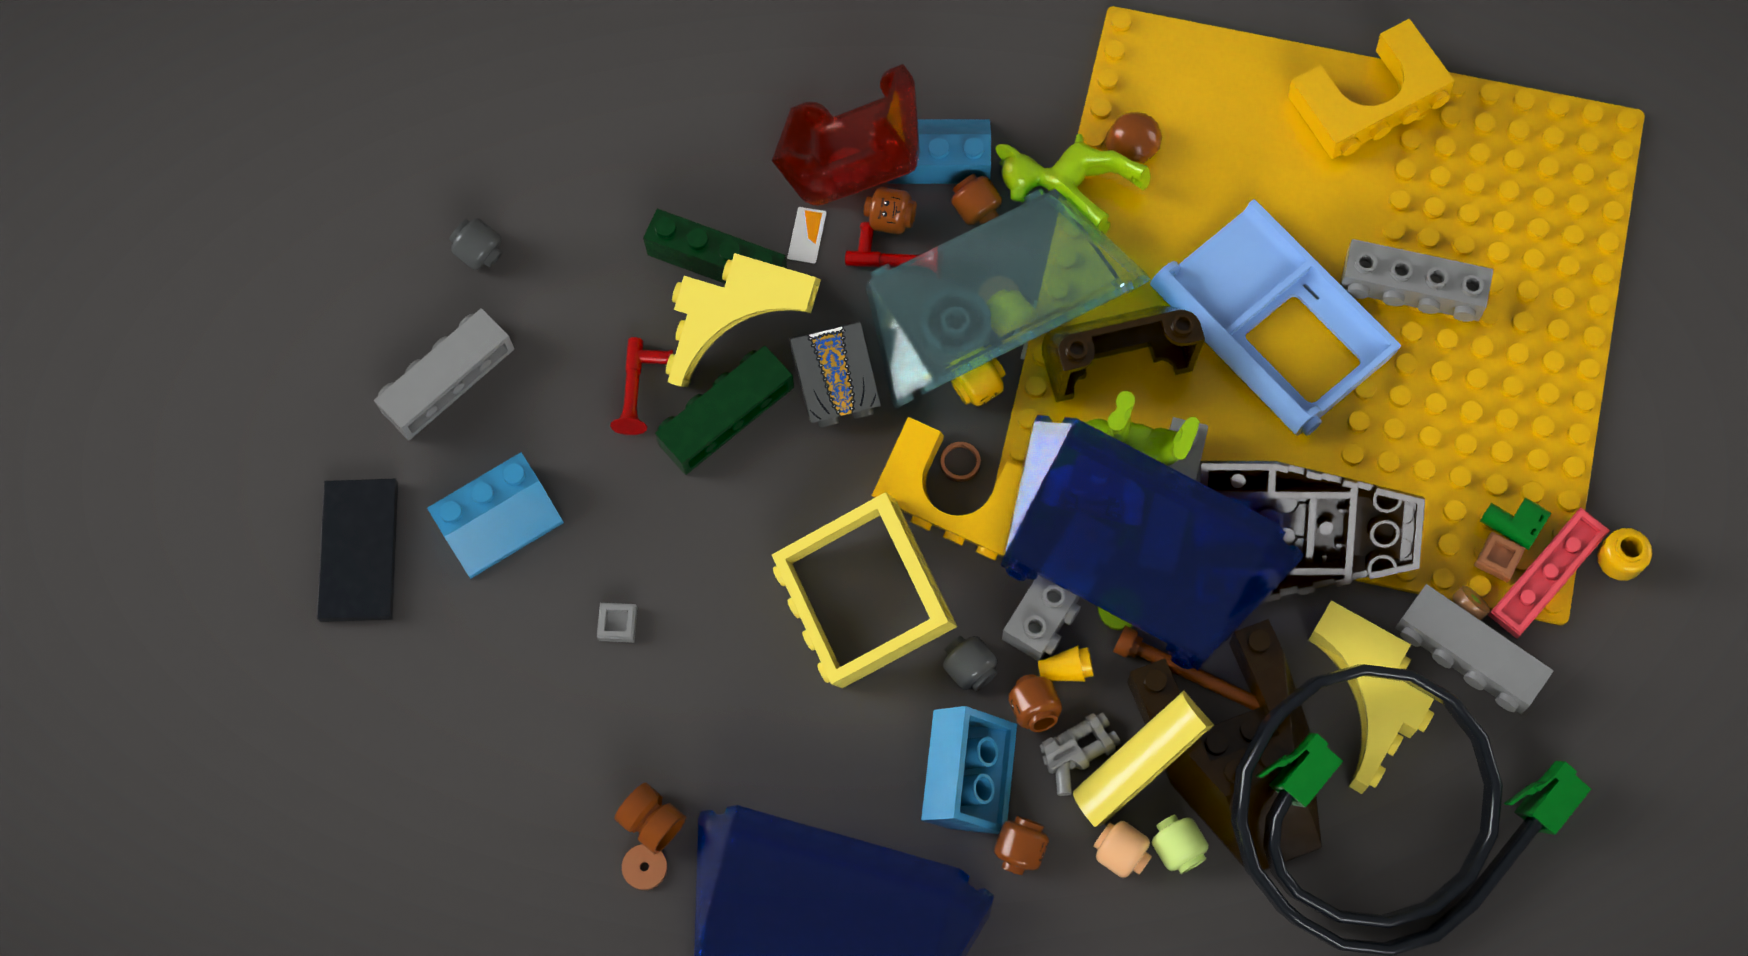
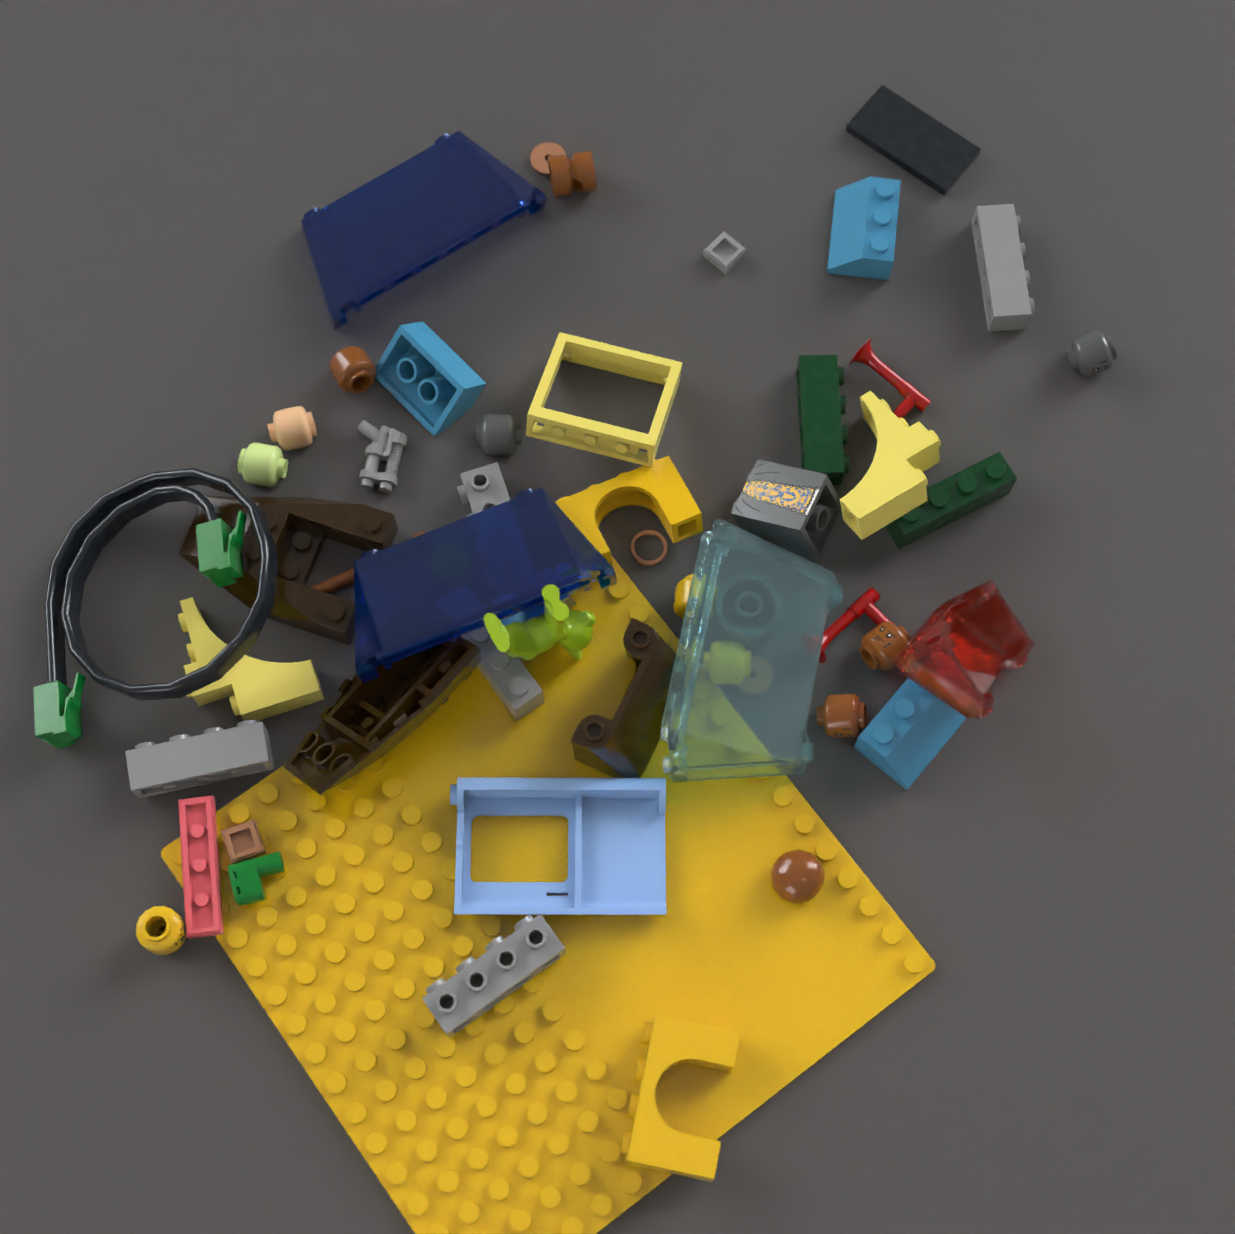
camera: 125 degrees right, 0 degrees up
(806, 235) = (918, 584): white sticker -> none
(1035, 703) = (434, 451): dark orange head -> none
(1068, 665) = (439, 495): yellow cone -> none
(1080, 160) = (834, 763): lime animal -> none
(1141, 759) = (331, 473): light yellow brick -> none
(1471, 602) = (231, 789): medium nougat tile -> none

